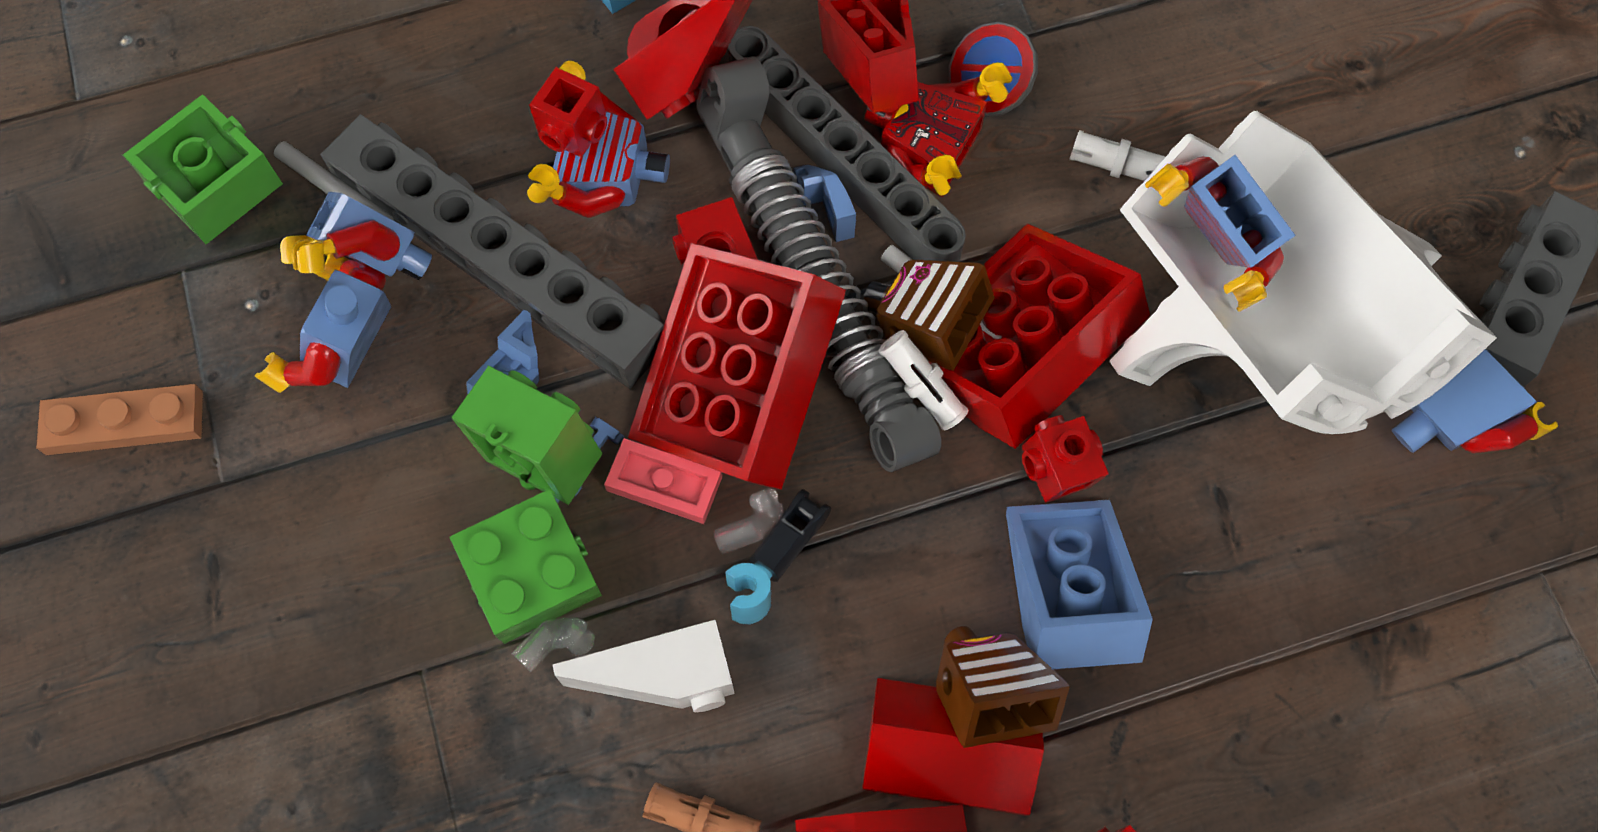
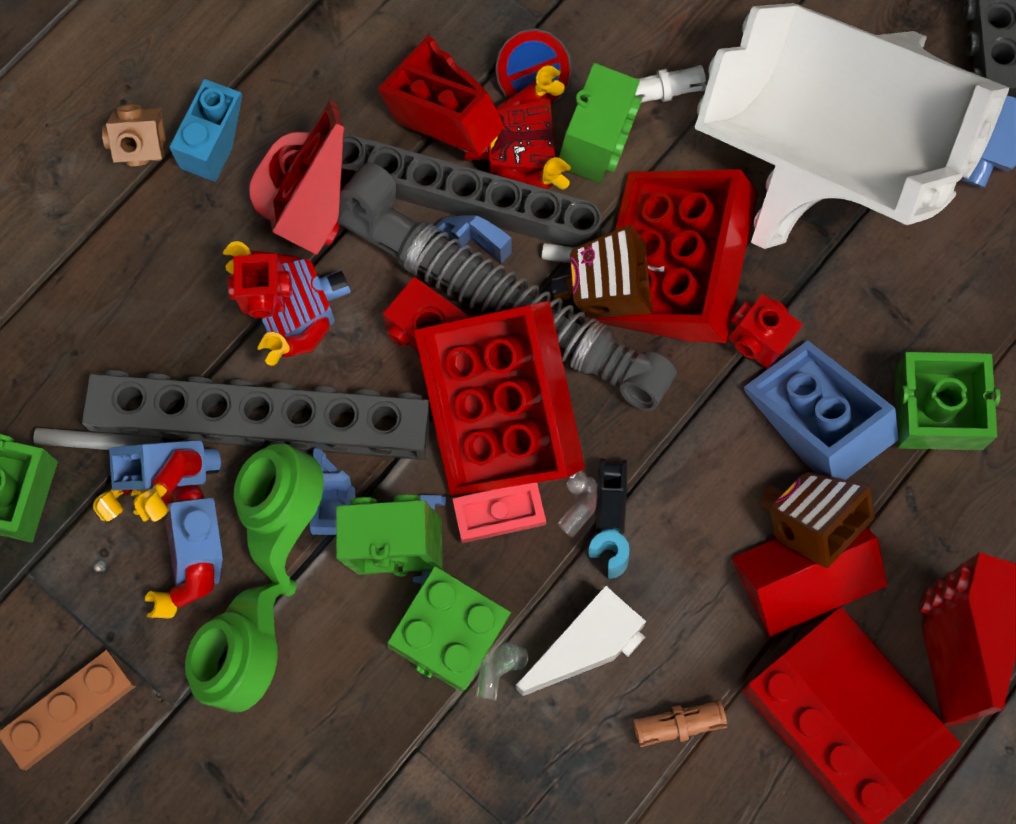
camera: 30 degrees left, 5 degrees up
(305, 453) = (249, 619): none -> bright green piece
(901, 355) = (616, 324): white pin -> none
(1021, 151) = (600, 123): none -> bright green brick
(1221, 651) = (945, 401): none -> bright green brick
(1232, 217) = (781, 94): torso -> none

